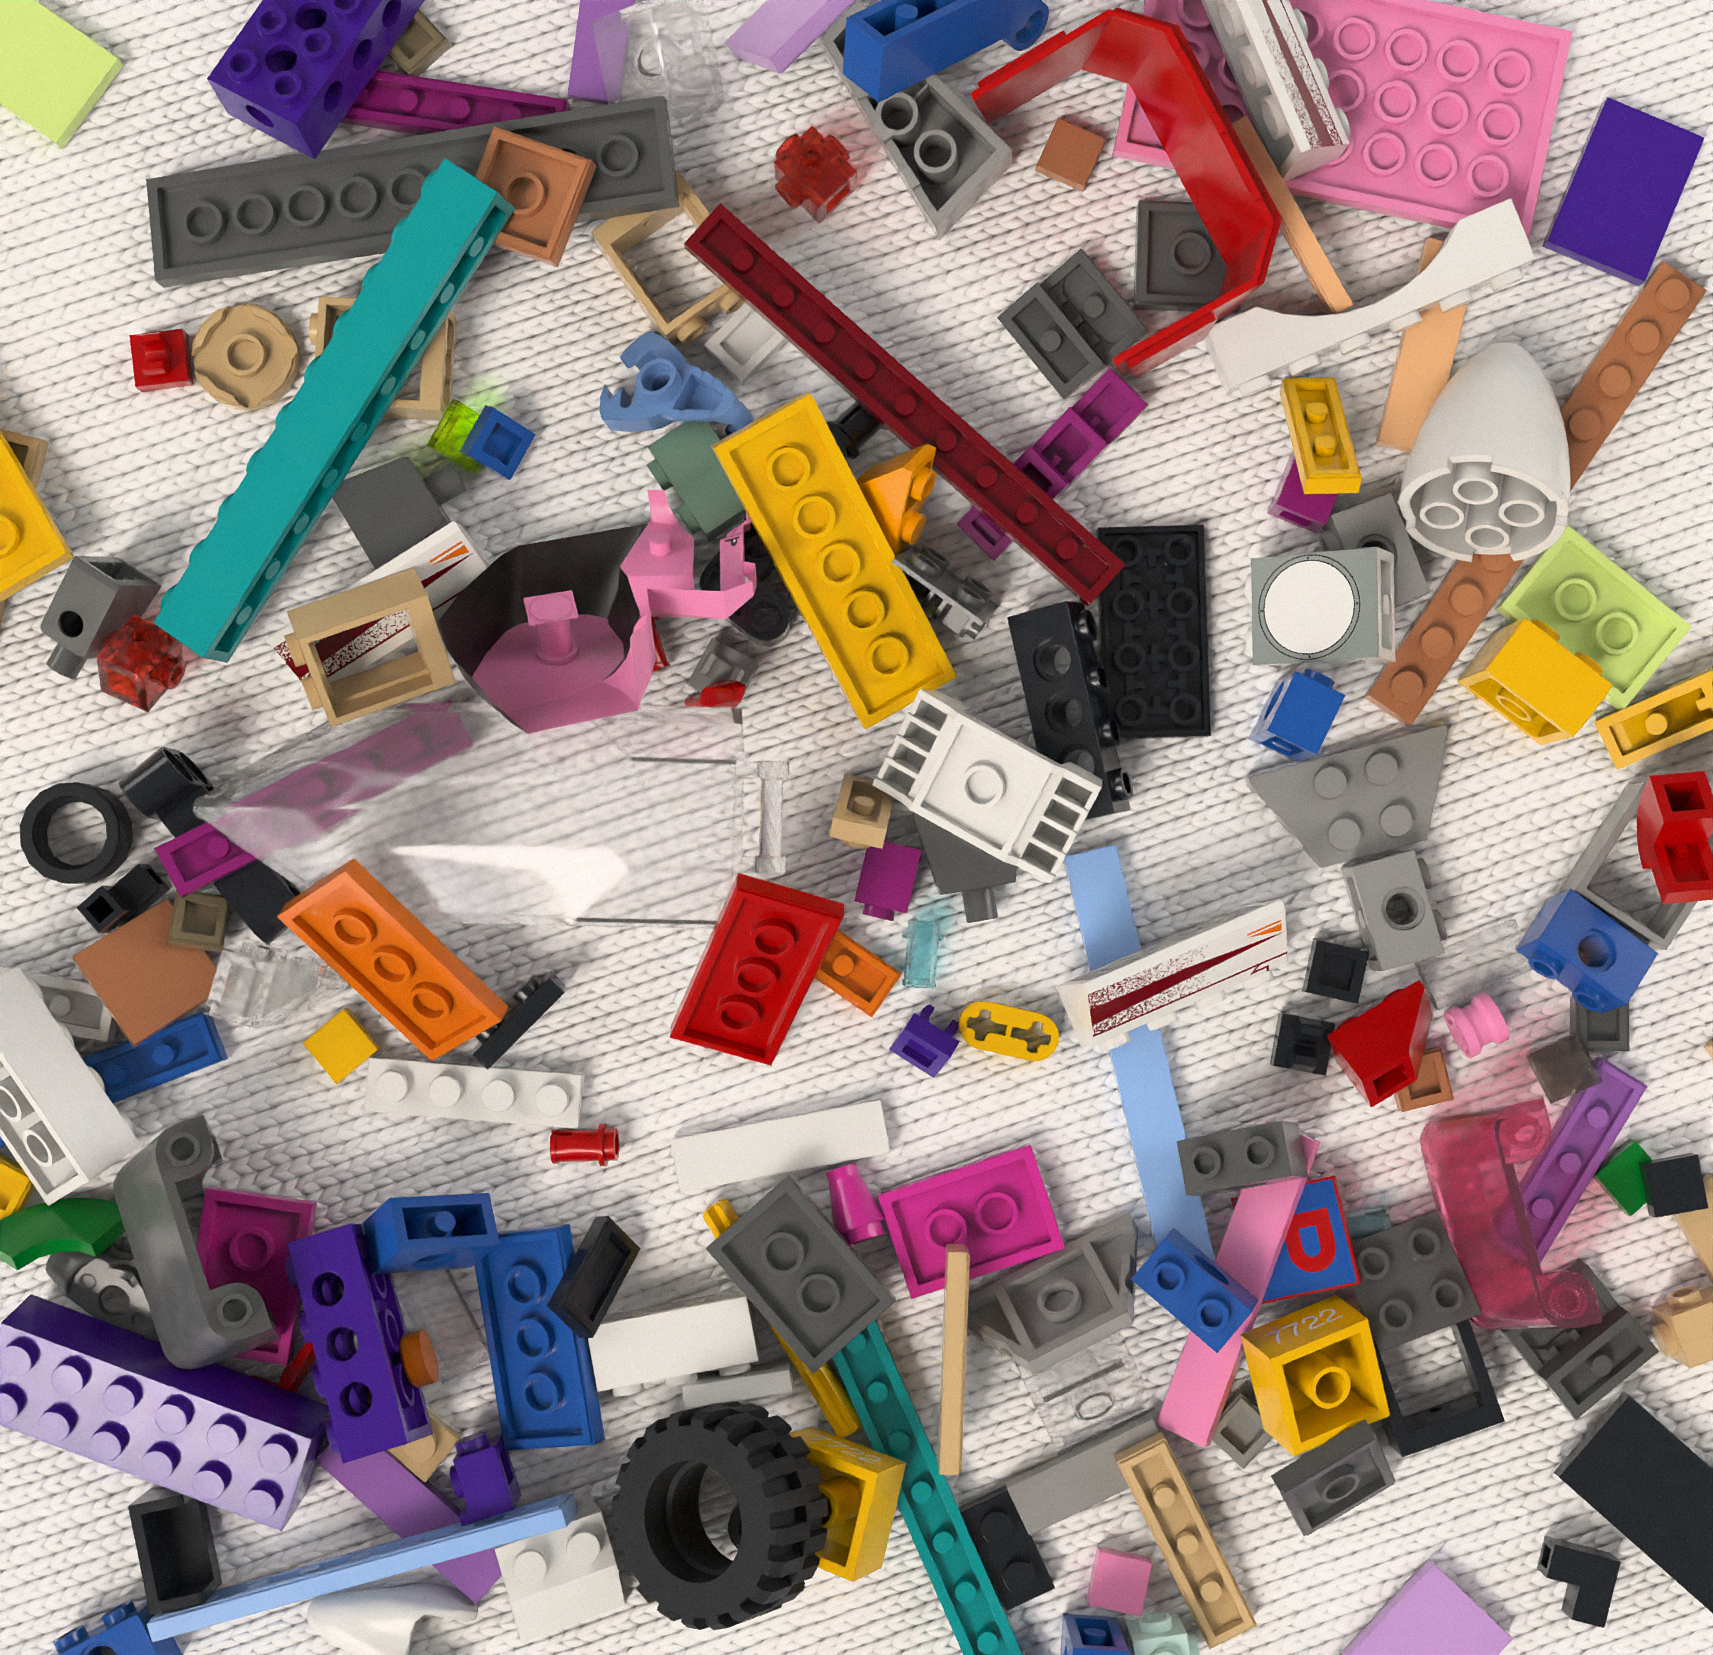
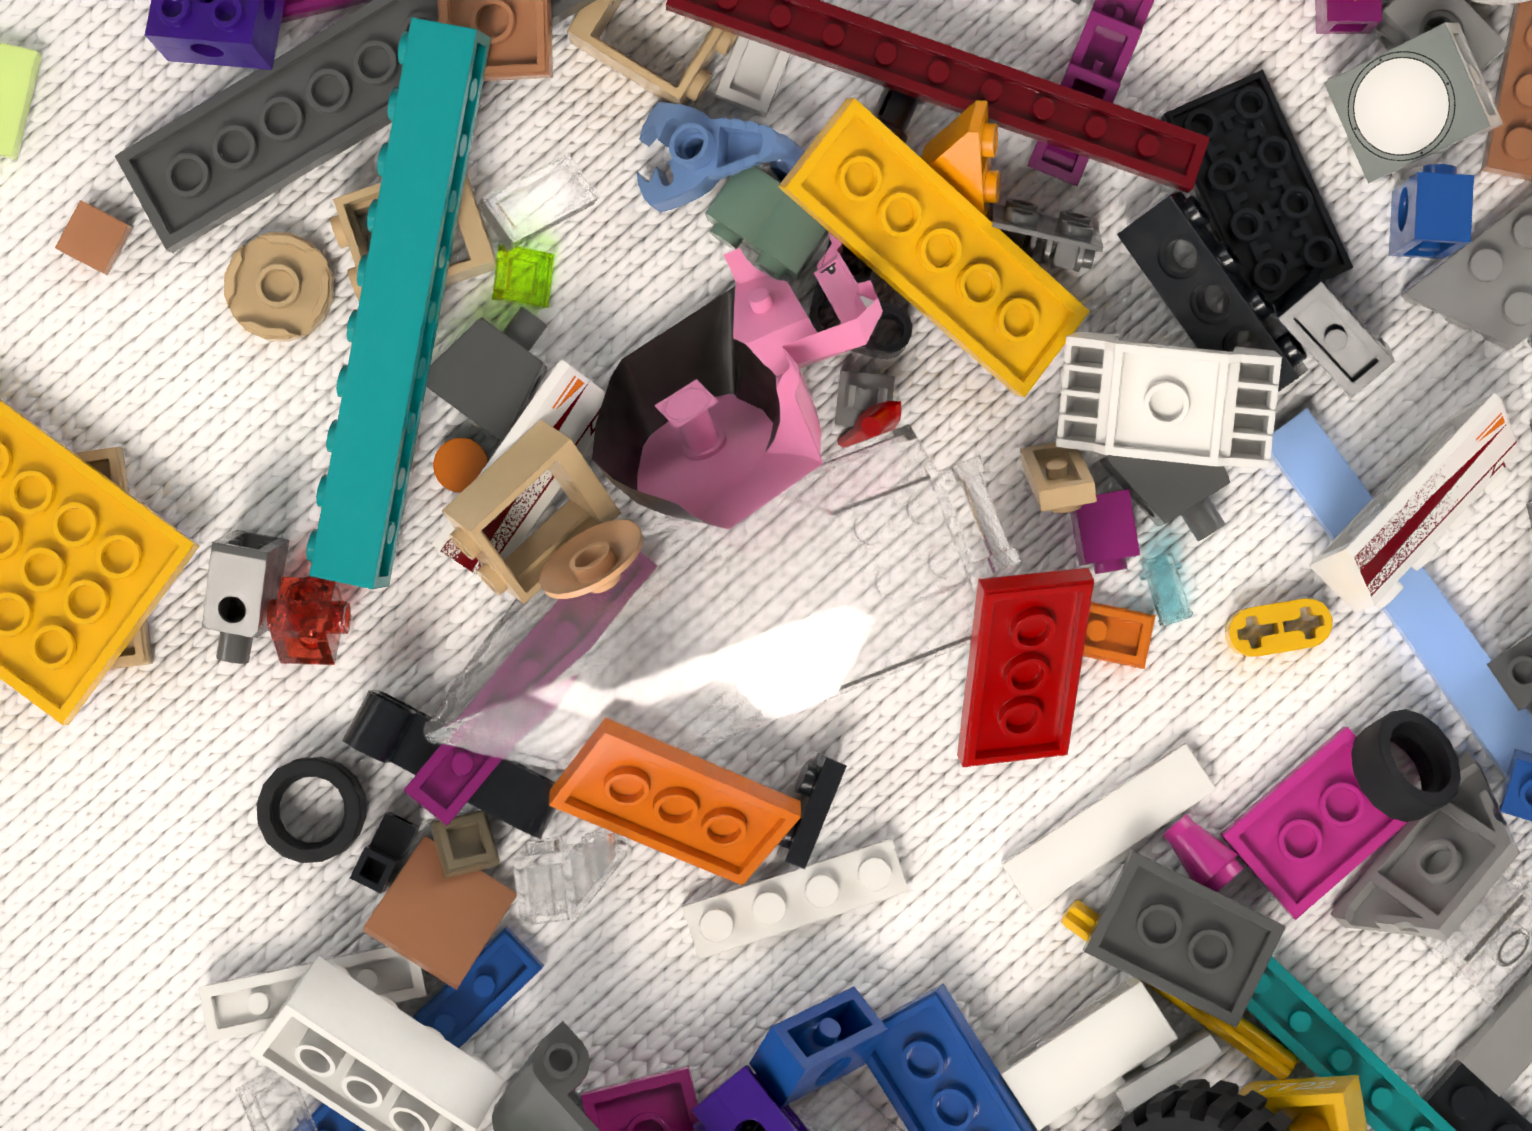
camera: 25 degrees left, 0 degrees up
(99, 245) = (93, 237): none -> nougat tile
(161, 360) = (199, 323): red tile -> none
(335, 575) = (459, 463): none -> orange tile
(341, 1045) = (650, 906): yellow tile -> none
(402, 712) = (591, 560): none -> light nougat dish
(497, 442) = (557, 269): blue tile -> none
(503, 374) = (537, 201): none -> clear tile
(585, 1145) = (923, 904): red pin -> none
(593, 1277) = (988, 1024): black tile -> none
(924, 1043) = (1207, 672): dark purple tile -> none
(953, 1359) = (1362, 958): tan tile -> none
(1096, 1202) = (1384, 782): none -> black tyre
(1162, 787) = (1332, 333): none -> panel

